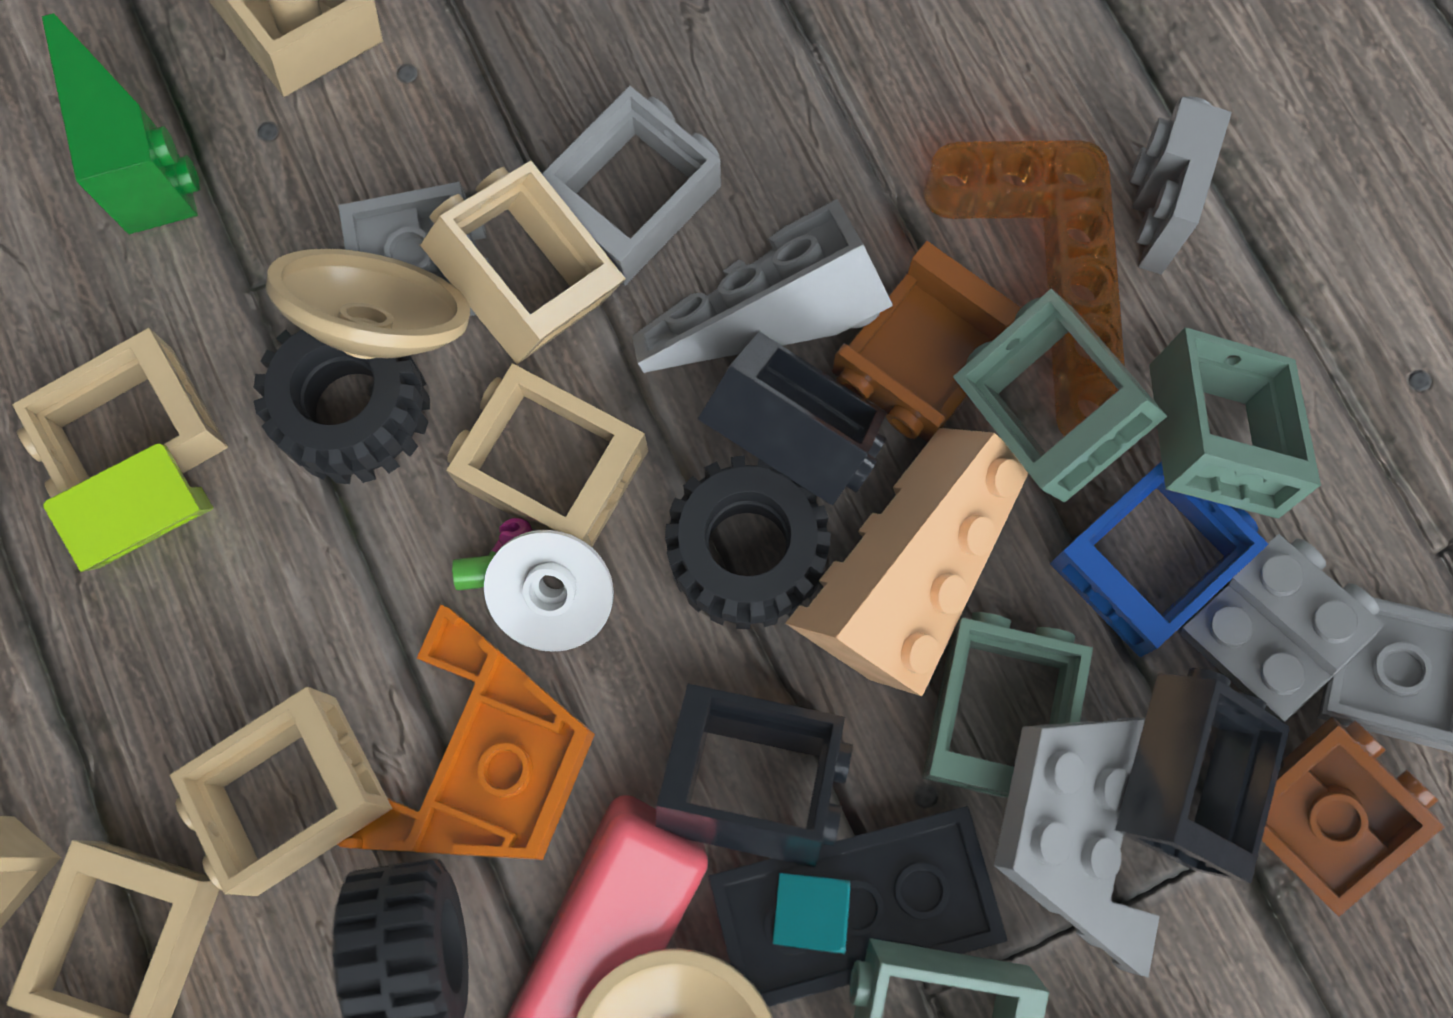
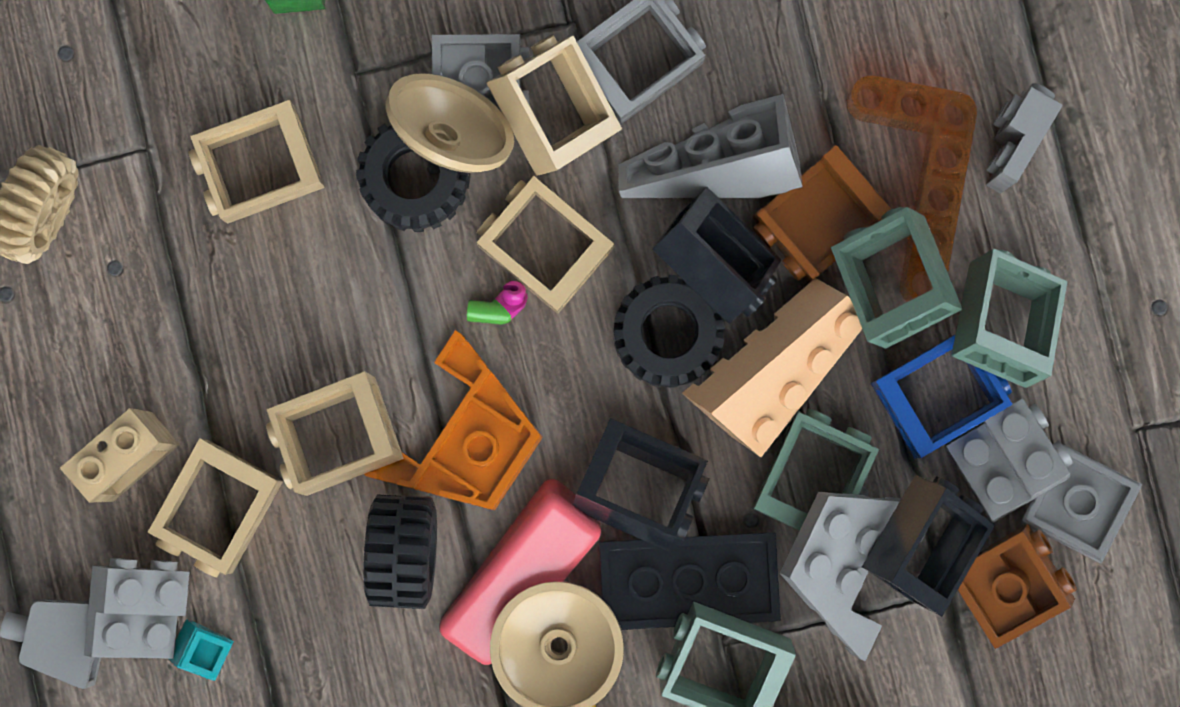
camera: 10 degrees right, 10 degrees up
(125, 508) = (257, 223): lime panel -> none
(542, 615) = (527, 351): white dish -> none
(812, 912) = (660, 578): teal slope -> none

